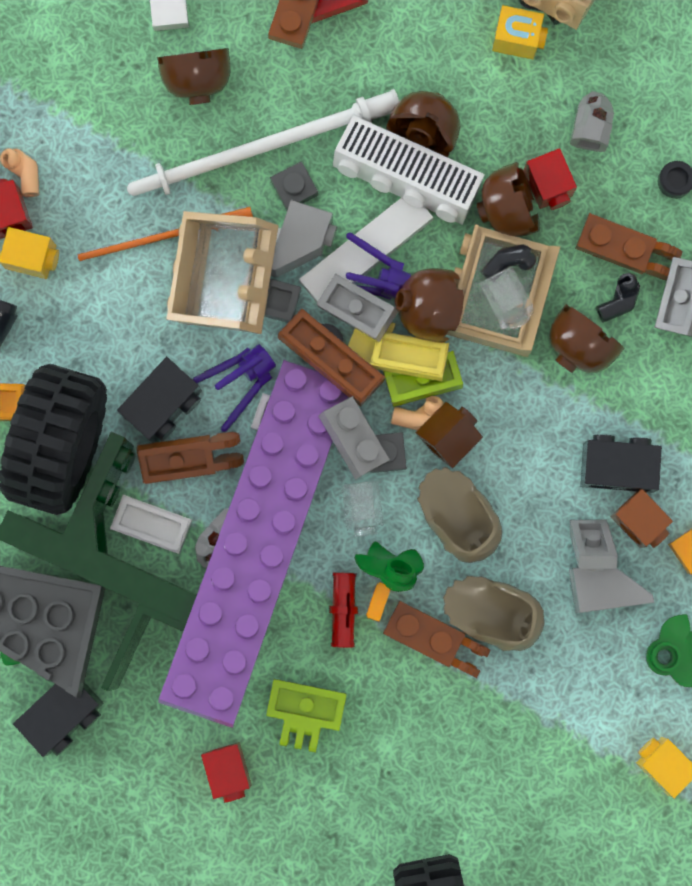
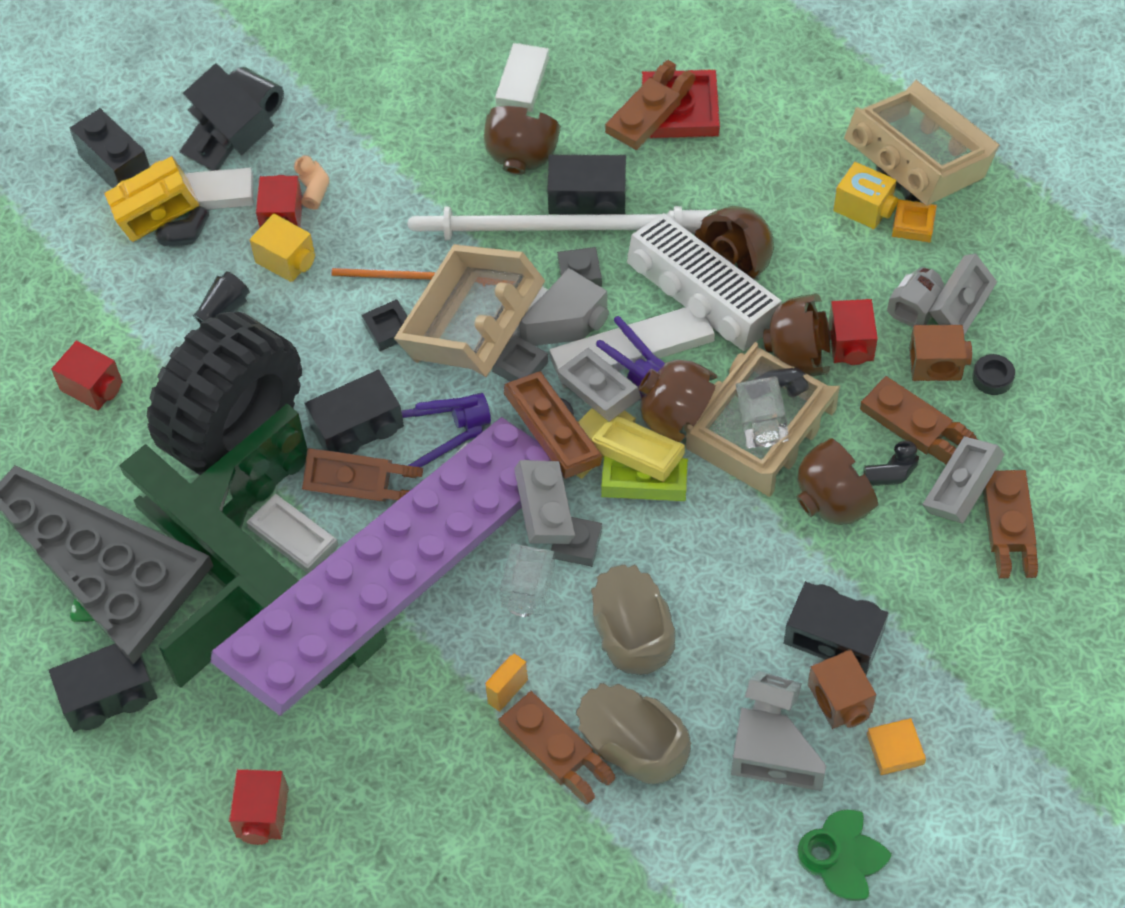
camera: 20 degrees right, 25 degrees down
(149, 297) = (384, 323): none -> black tile
(272, 99) = (586, 184): none -> black brick
(305, 711) = (375, 773): lime hinge -> none
(343, 610) = (464, 680): red pin -> none
(394, 571) = (535, 648): green plate -> none
(415, 419) = (627, 518): light nougat arm -> none
(450, 433) = (652, 534): reddish brown brick -> none
(565, 42) = (914, 220): none -> light orange tile
(628, 177) = (939, 352): none -> dark orange brick
(631, 112) = (963, 293): none -> light grey plate

